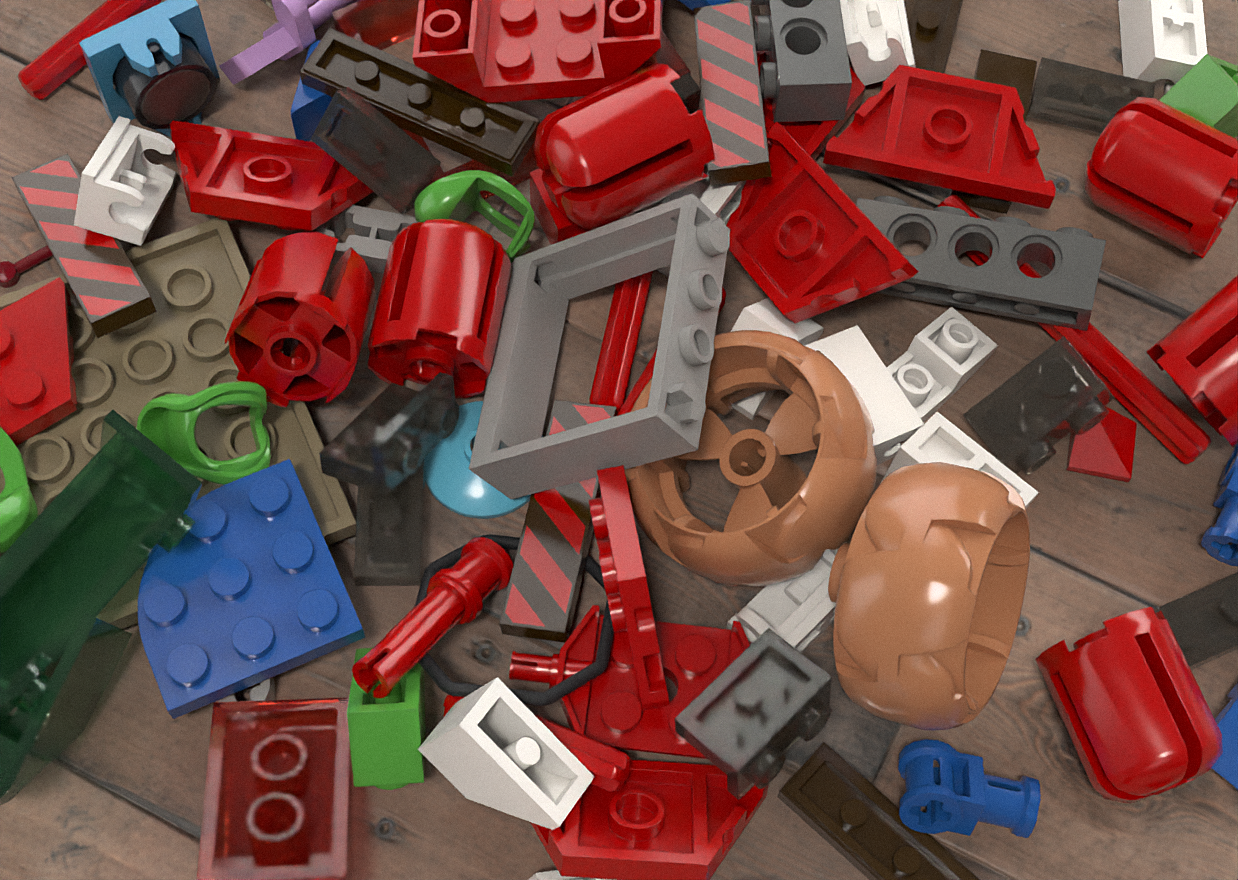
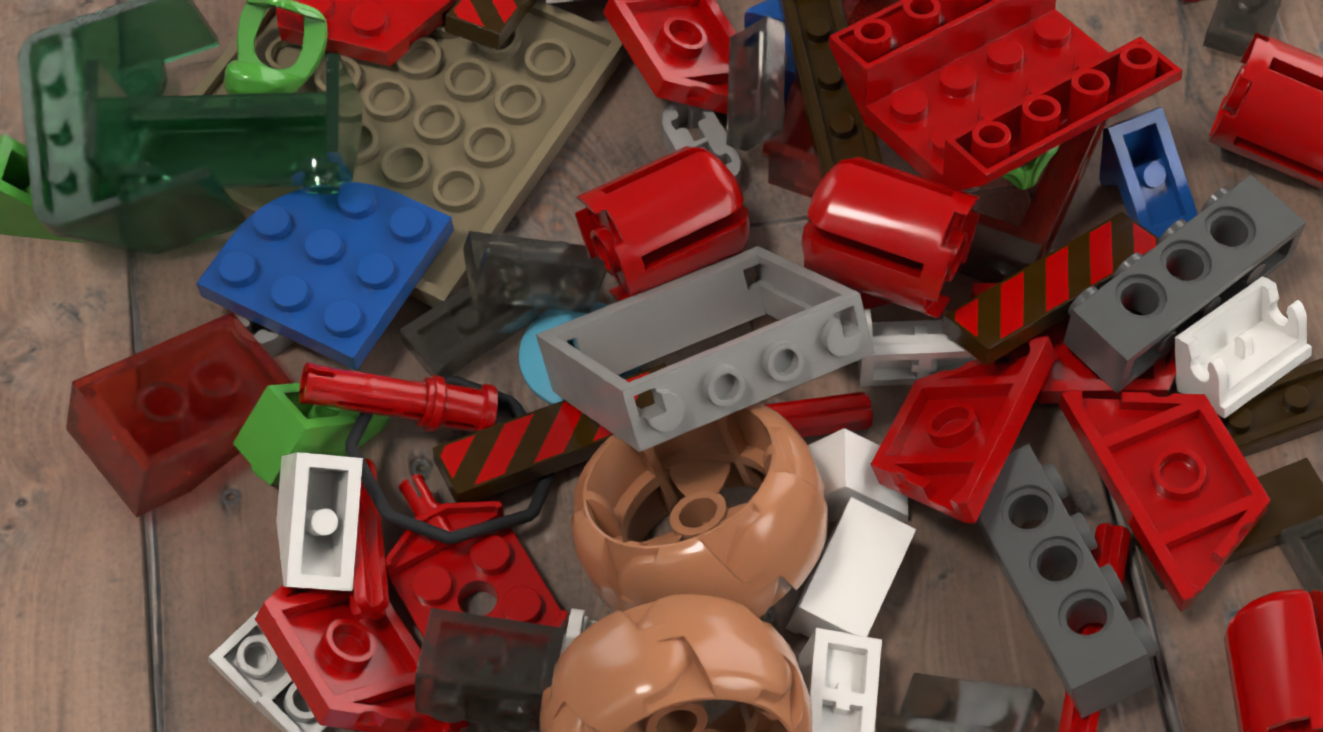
camera: 60 degrees right, 5 degrees down
(172, 423) = (404, 129): bright green piece -> none
(321, 326) = (564, 137): red cylinder -> none
(459, 195) = (774, 171): bright green piece -> none
(627, 583) = (519, 502): red wing -> none
(940, 361) = (945, 626): white slope -> none

